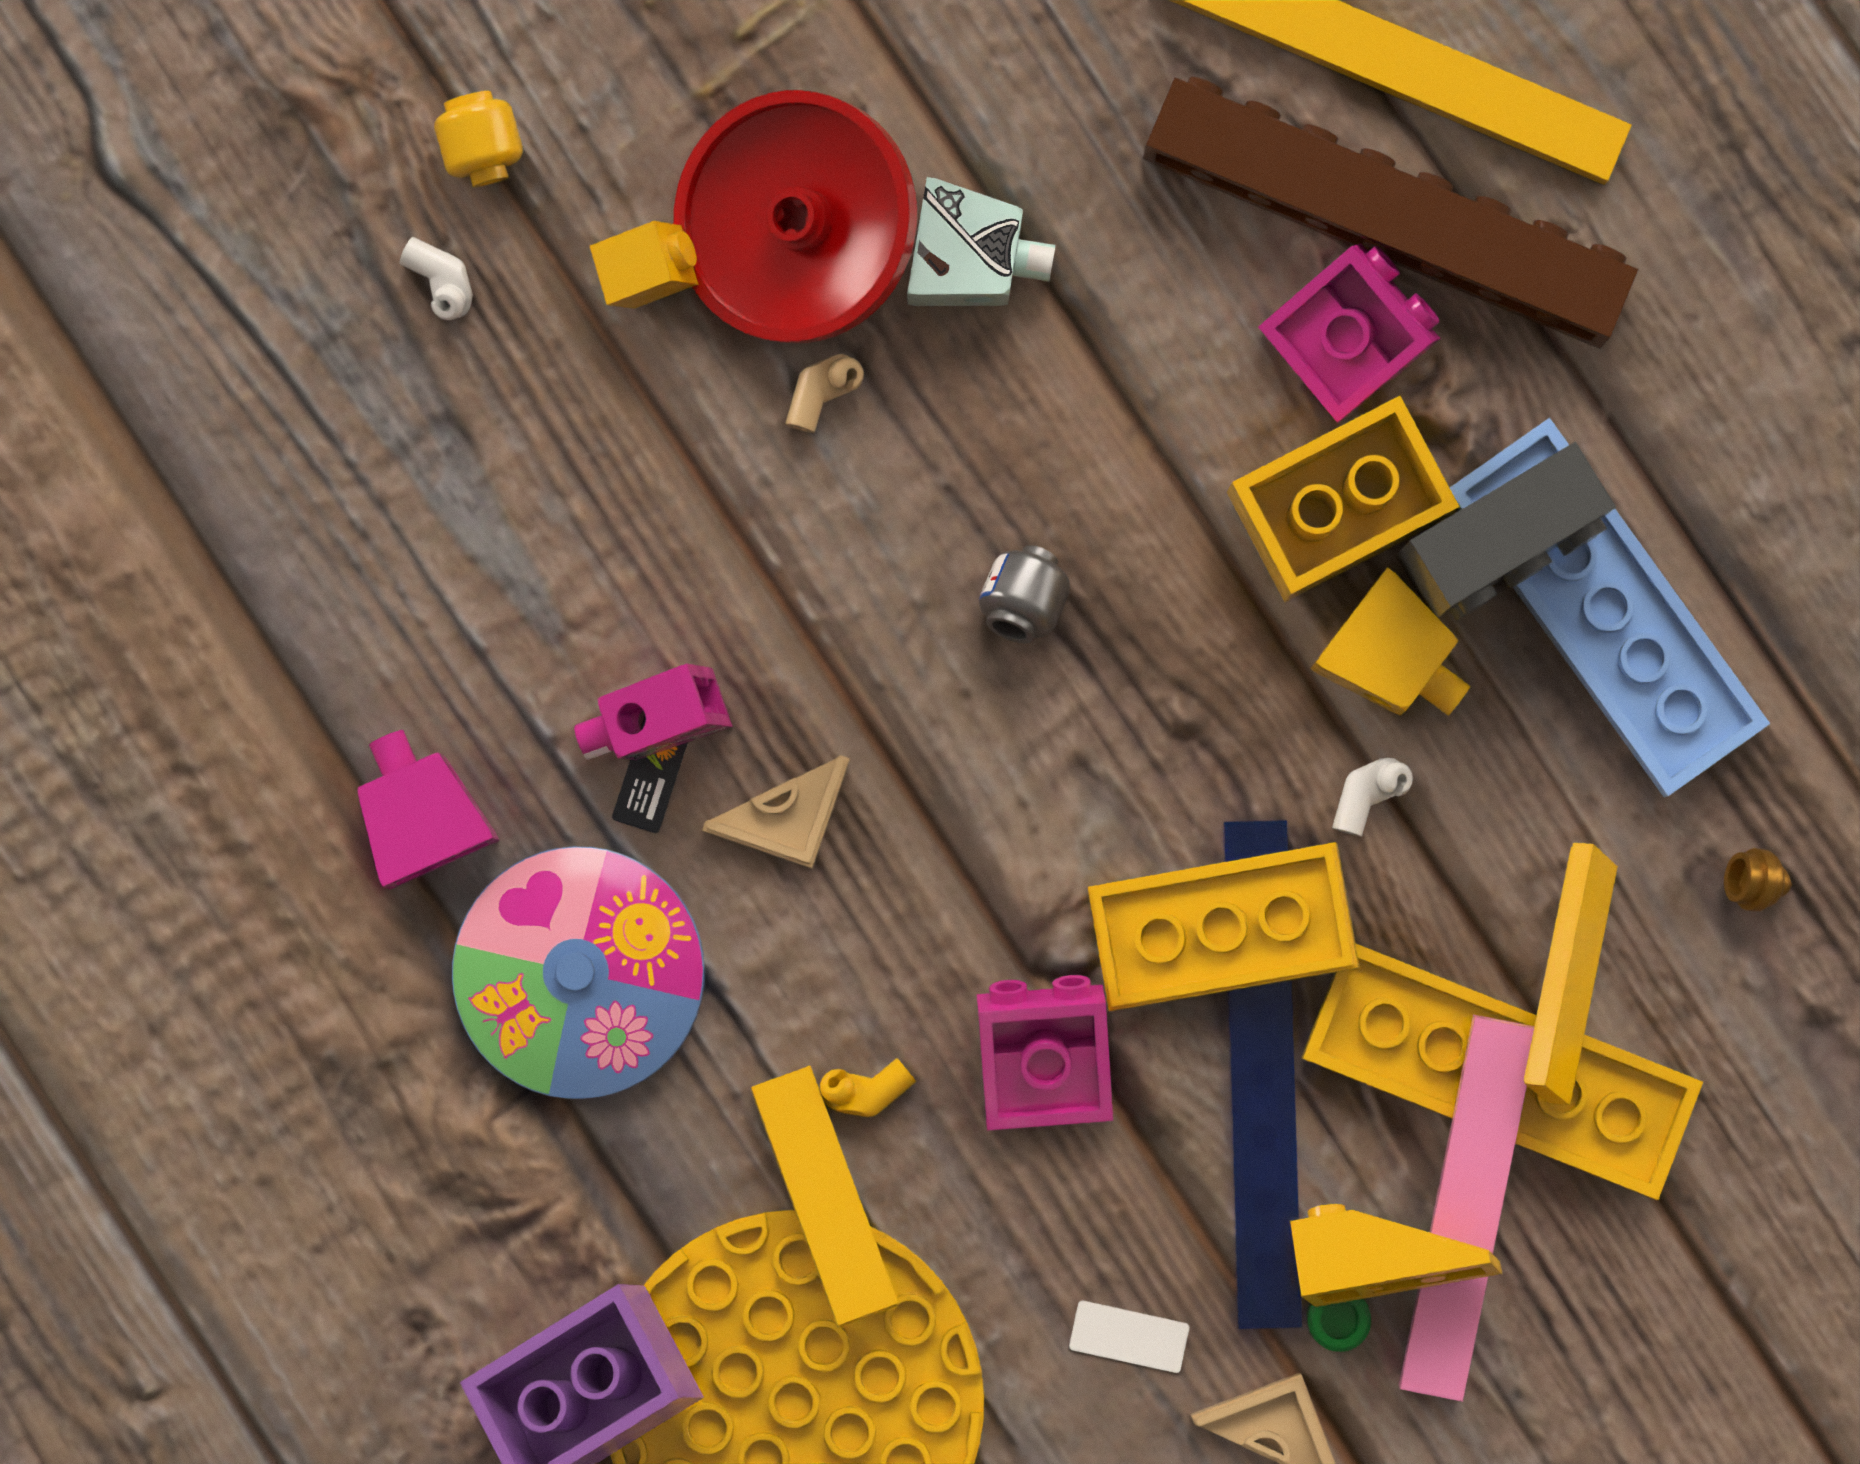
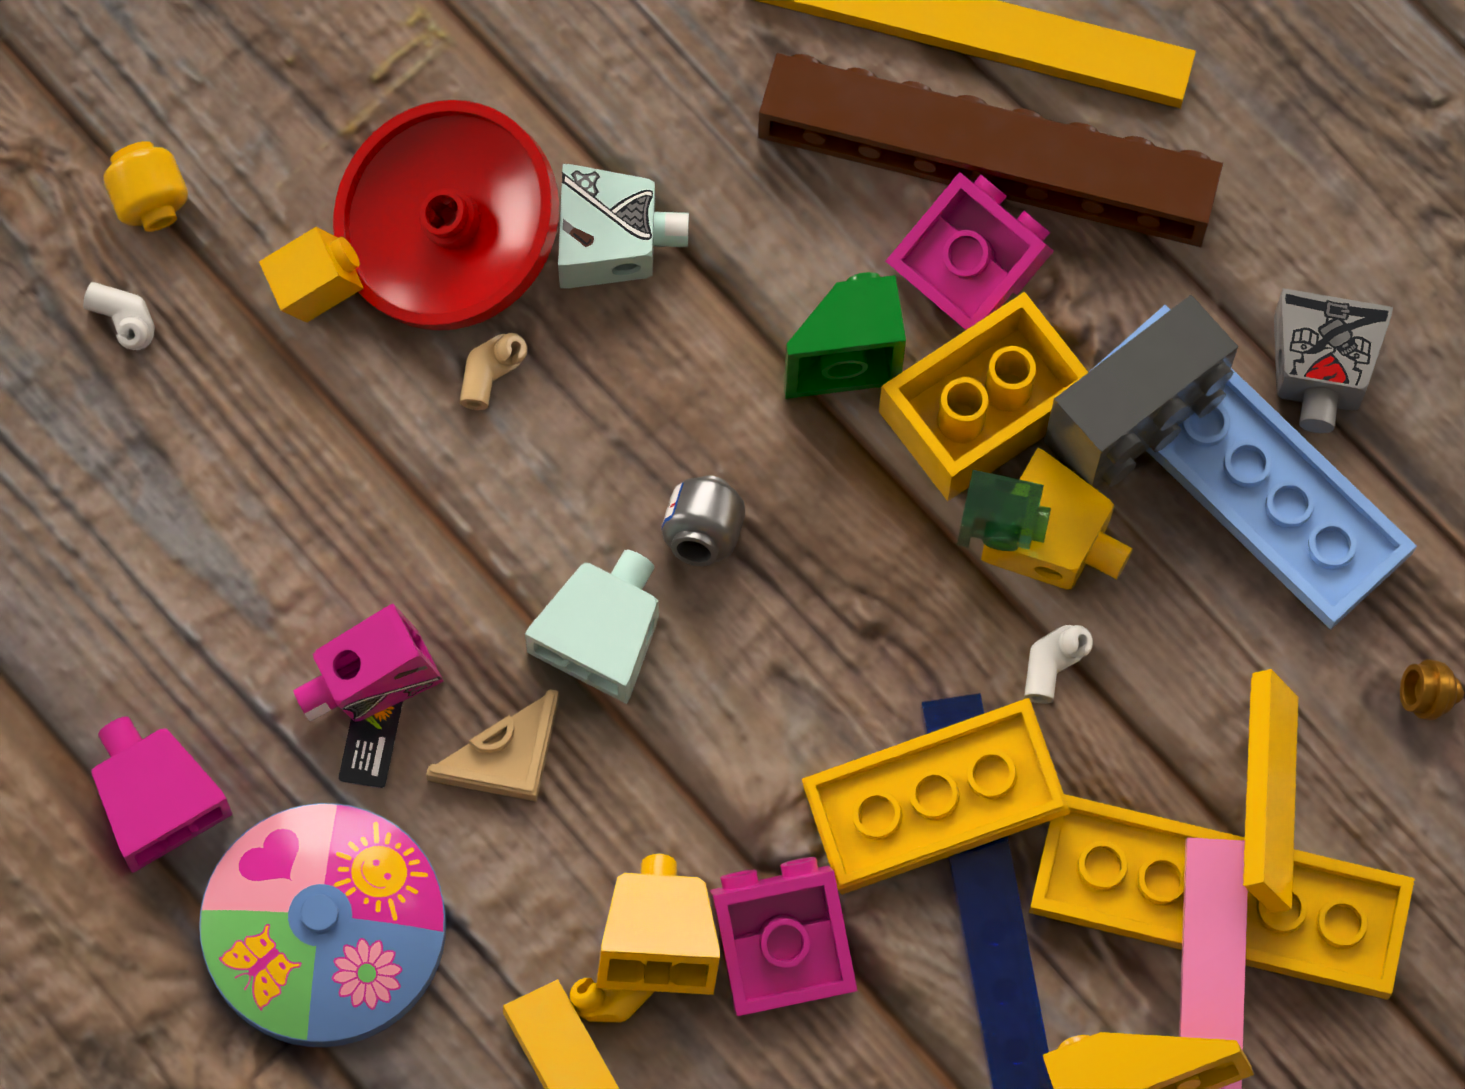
camera: 10 degrees left, 15 degrees down
(902, 694) = (599, 625): none -> light aqua torso
(919, 1035) = (659, 933): none -> yellow torso
(1208, 418) = (848, 340): none -> green slope
(1339, 644) = (1003, 512): none -> clear green brick
(1712, 495) = (1326, 353): none -> light grey torso

